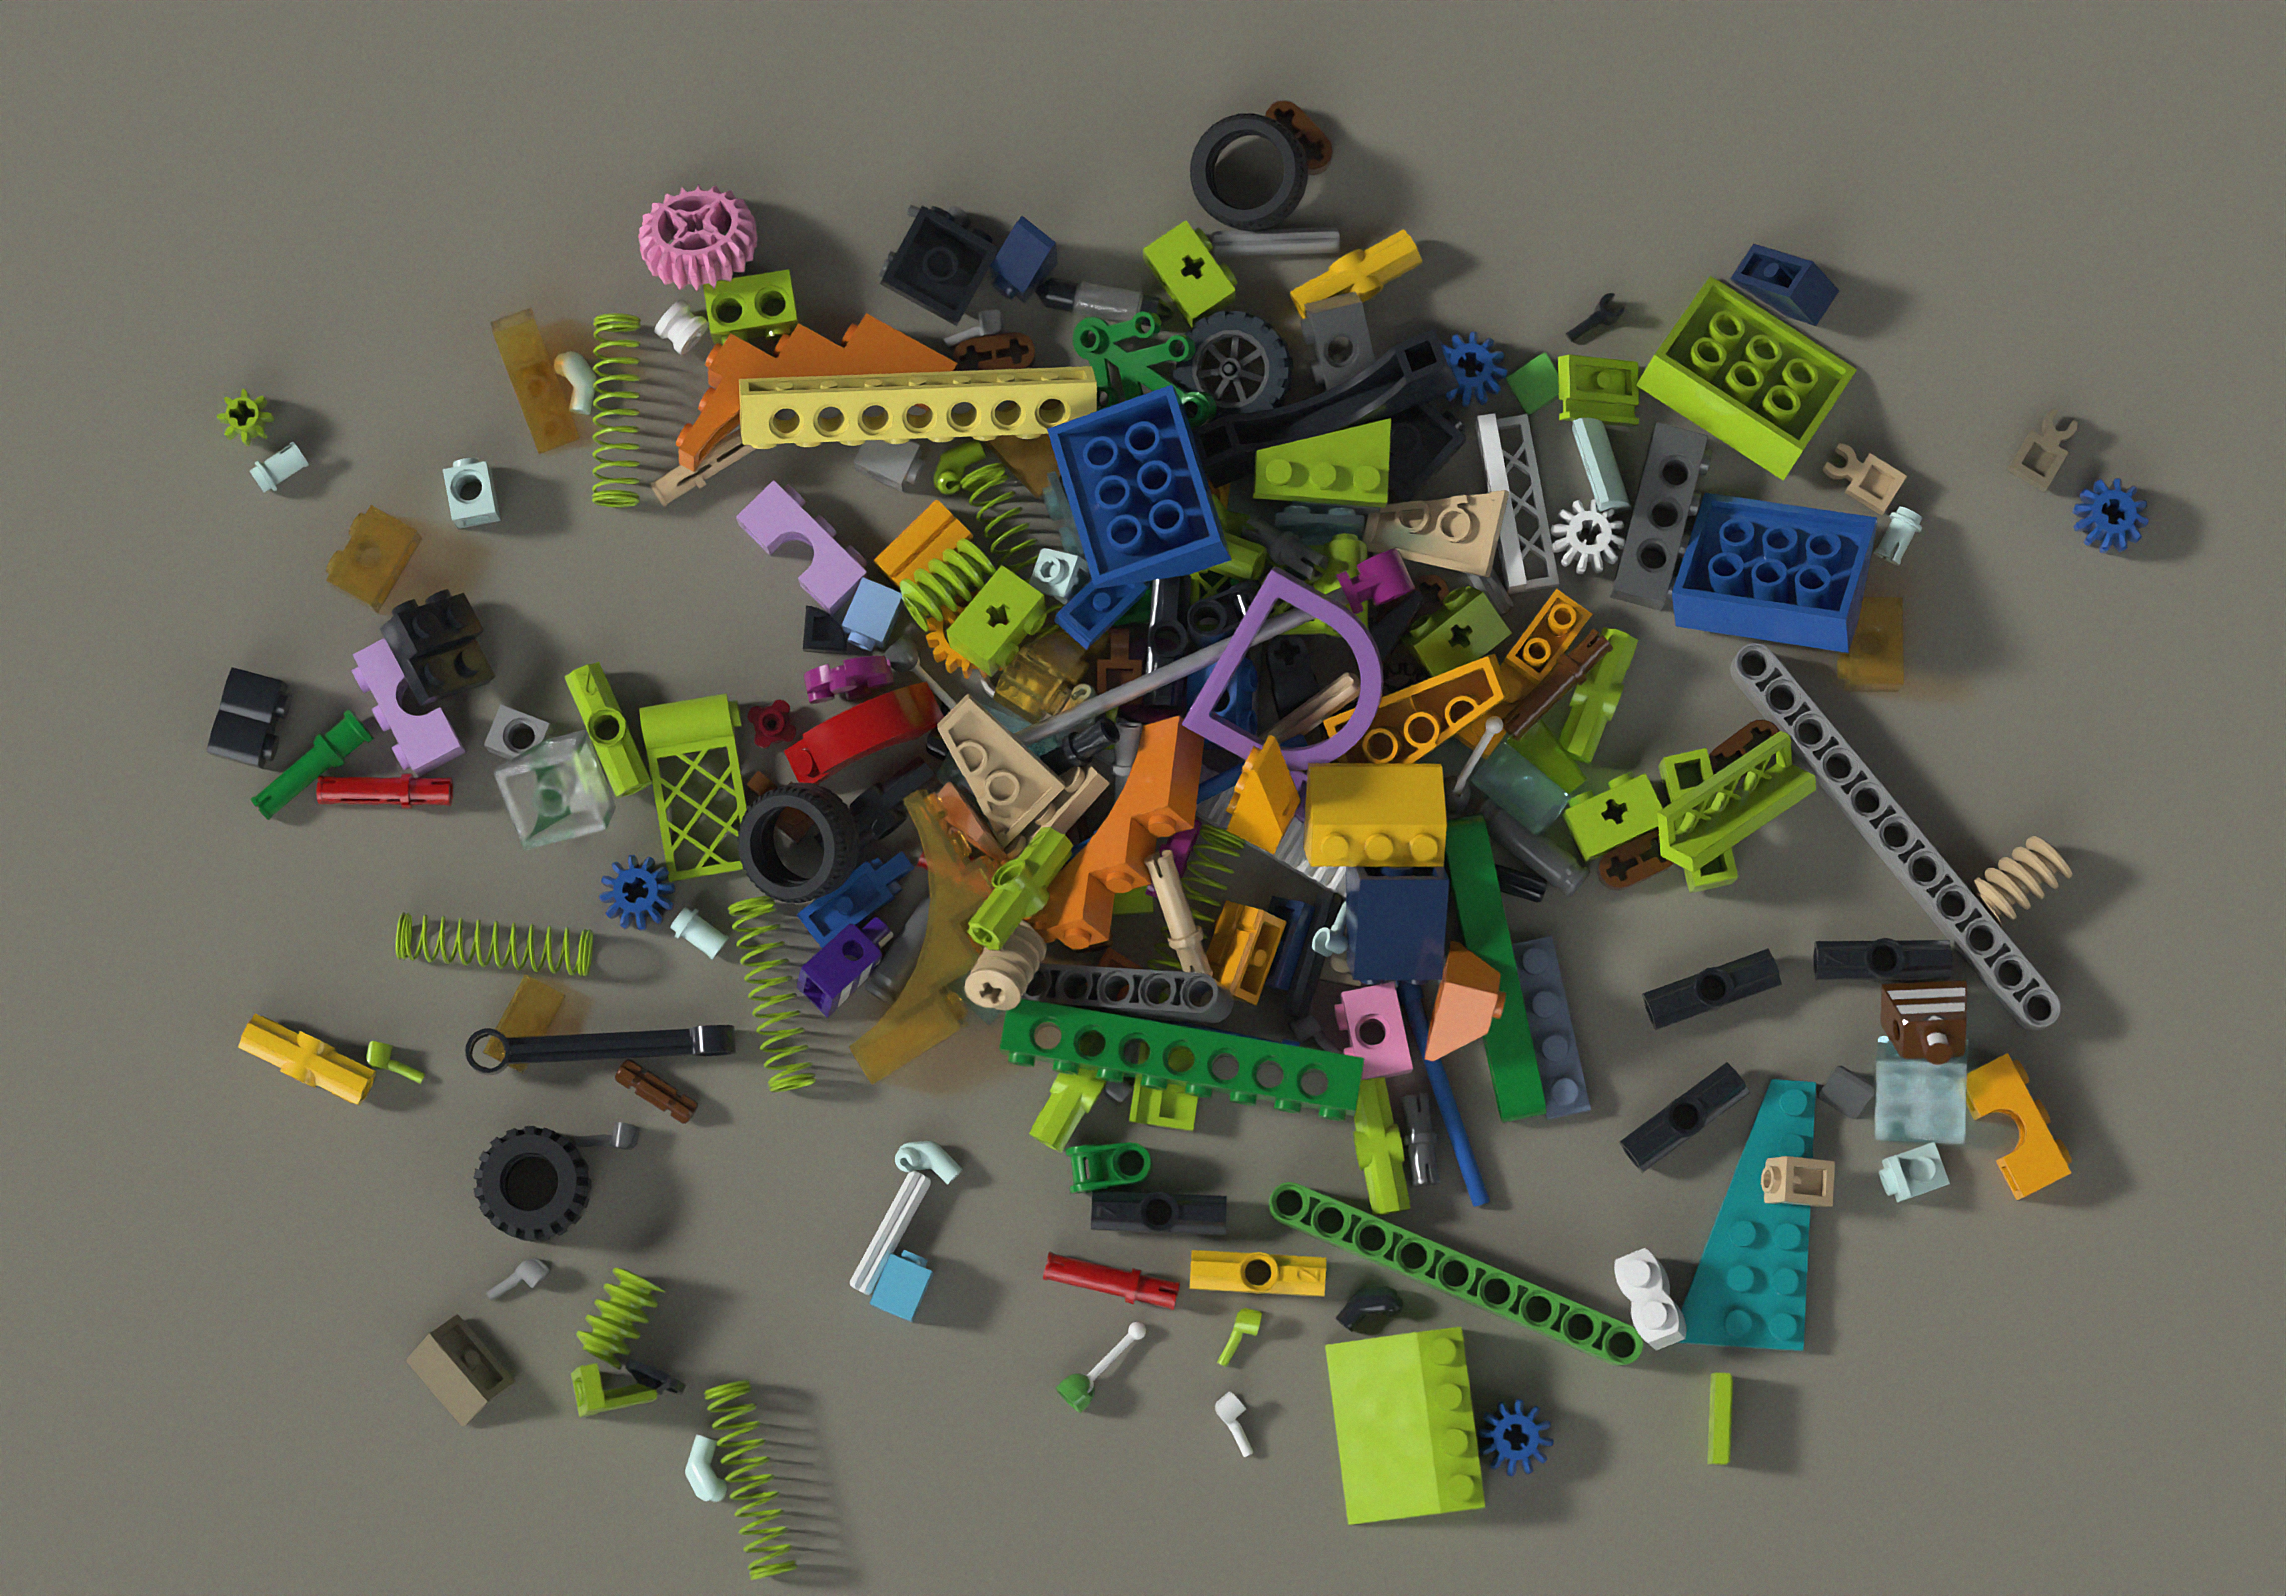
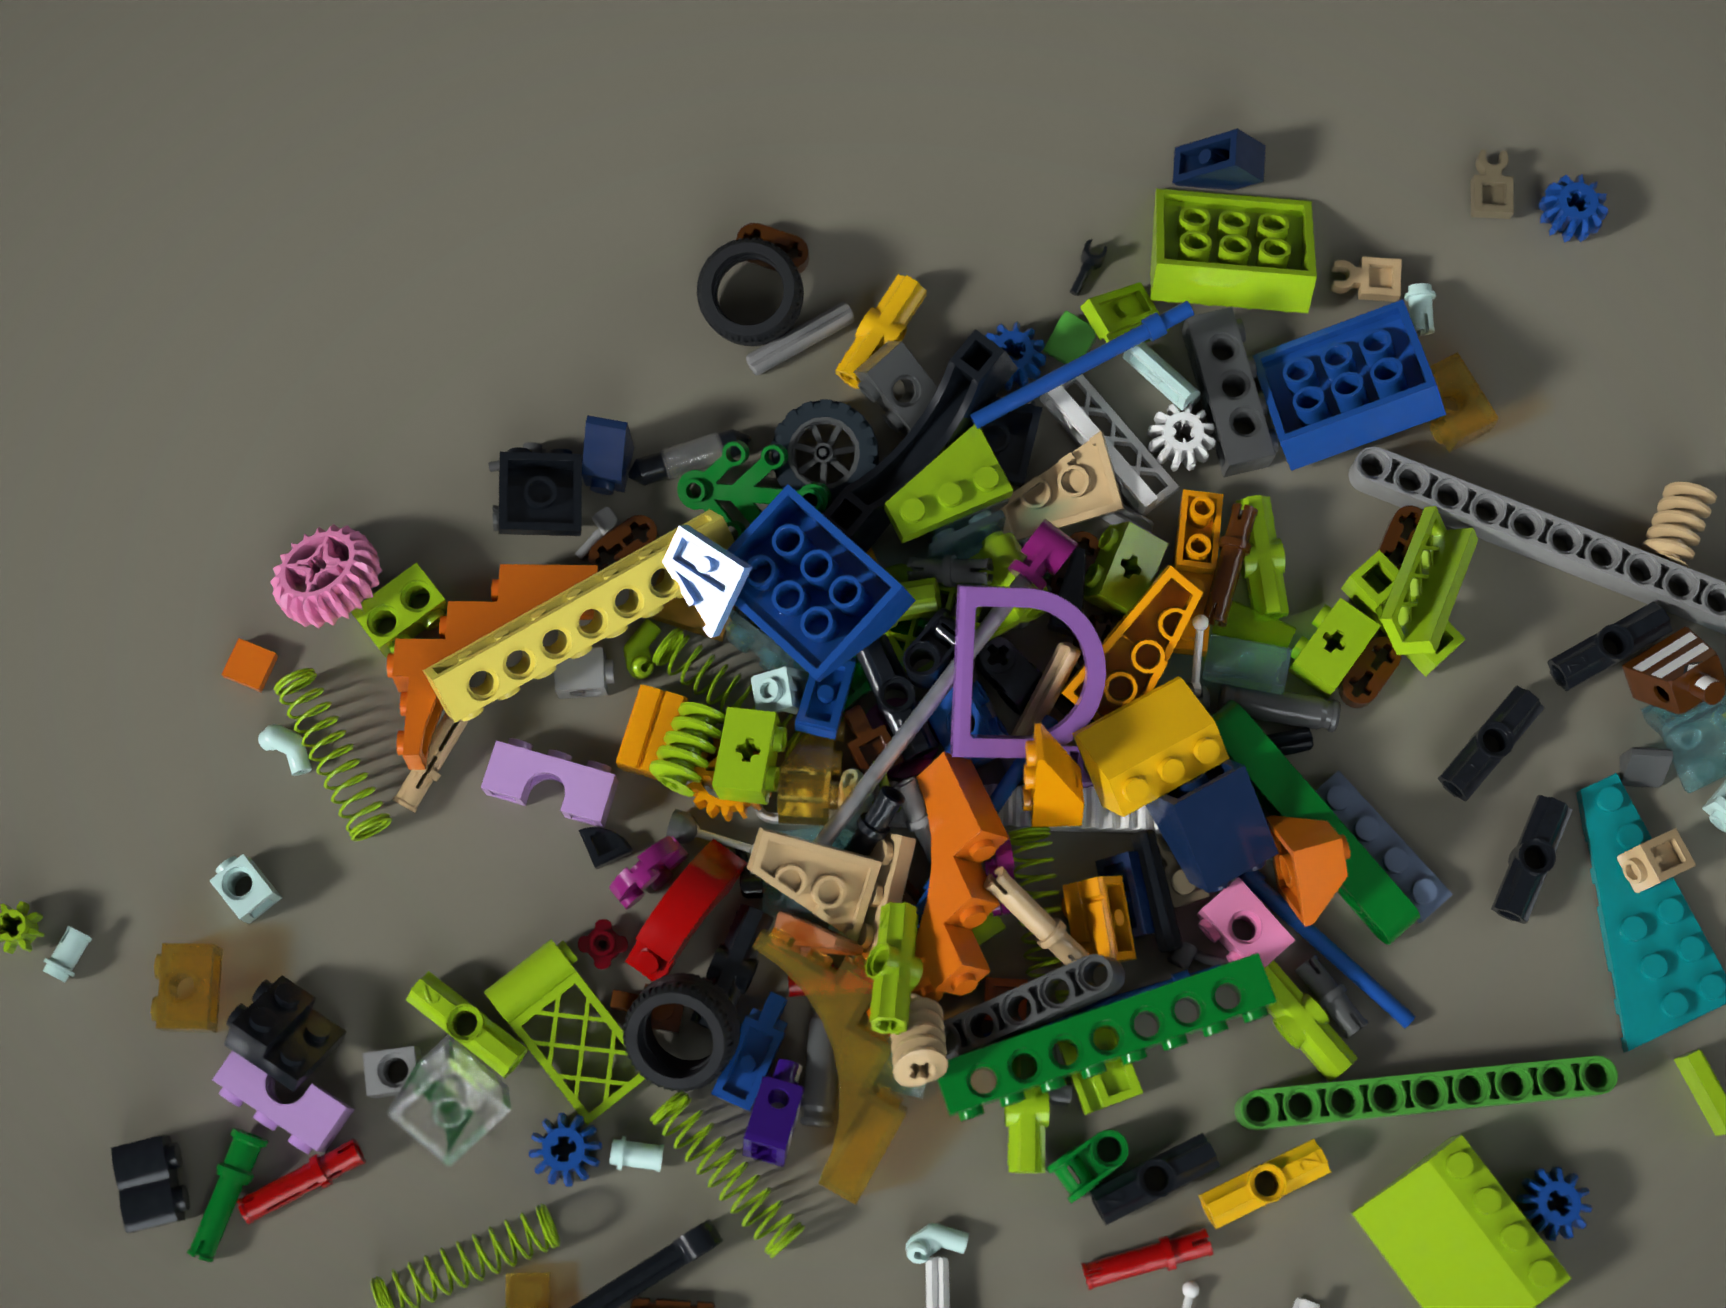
camera: 30 degrees left, 5 degrees down
(534, 380) = (250, 766): clear yellow slope -> none
(583, 283) = (250, 665): none -> orange tile
(681, 327) = (351, 657): white wheel -> none
(872, 615) = (638, 808): light blue brick -> none
(1048, 431) = (707, 576): none -> wing
(1192, 297) = (755, 414): lime brick -> none
(1246, 1322) = (1277, 1230): lime hand -> none
(1330, 941) = (1167, 869): light aqua hand -> none
(1370, 1301) = (1368, 1154): black arm -> none
(1606, 417) = (1151, 328): none -> blue bar
(1648, 1288) = (1587, 1017): white brick -> none

